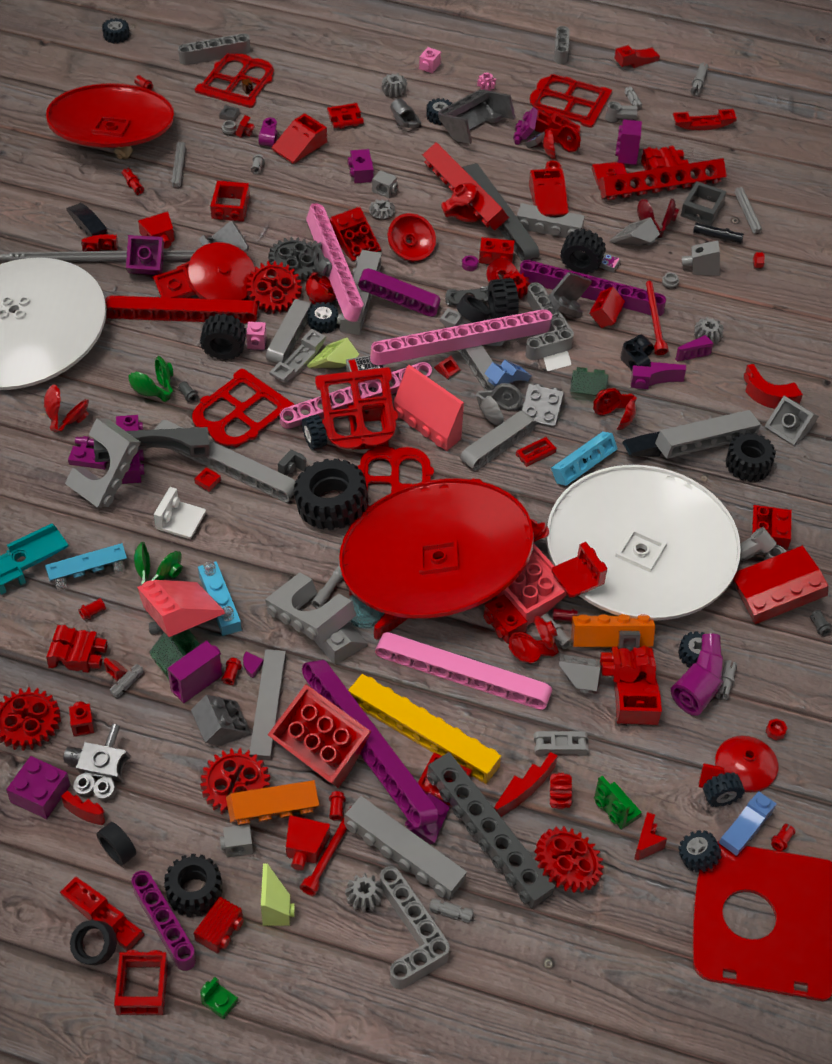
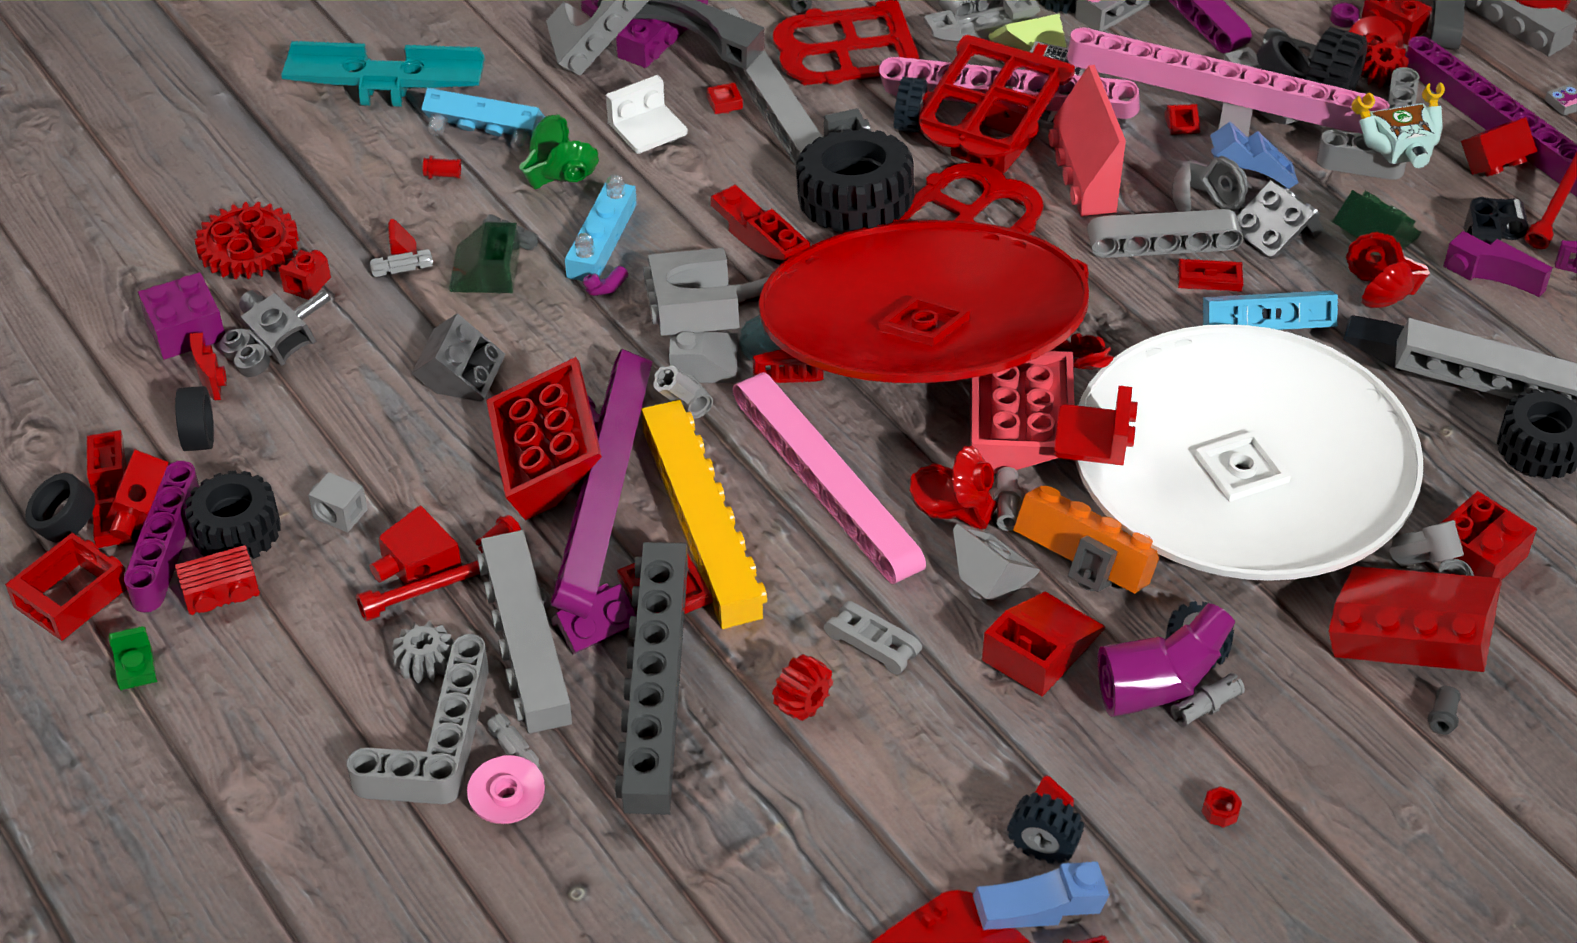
camera: 40 degrees right, 5 degrees down
(79, 649) = (375, 197): red hips -> none
(136, 907) = (135, 494): none -> red torso
(178, 604) = (530, 201): coral slope -> none
(195, 671) = (480, 286): magenta brick -> none
(217, 775) = (403, 437): red gear -> none
(232, 668) = (531, 317): red pin -> none
(252, 627) = (608, 285): none -> magenta arm
(252, 664) = (566, 324): magenta tile -> none
(267, 703) = (583, 343): light grey tile -> none
(272, 801) = (414, 477): orange brick -> none
(275, 900) = (300, 585): yellowish green slope -> none
(305, 550) = (758, 229): none -> red slope
(357, 666) = (680, 386): none -> light grey piece
(477, 926) = (501, 777): none -> bright pink dish
(504, 618) = (947, 435): red brick -> none
(522, 789) = (751, 658): red slope -> none
(557, 361) = (1359, 183): white sticker -> none
(564, 615) = (1035, 480): dark red pin -> none
(568, 292) = (1462, 97): flat silver bracket -> none
(568, 322) = (1404, 131): none -> light aqua torso
(568, 859) = (725, 777): red gear -> none
(592, 253) = (1525, 59): black tyre -> none
(615, 803) = (870, 755): green bracket -> none
(628, 664) = (1057, 583): red hips -> none
(649, 842) = (867, 826): red slope -> none
(699, 851) = (927, 884): black wheel -> none
(754, 772) = (1130, 841): red dish -> none

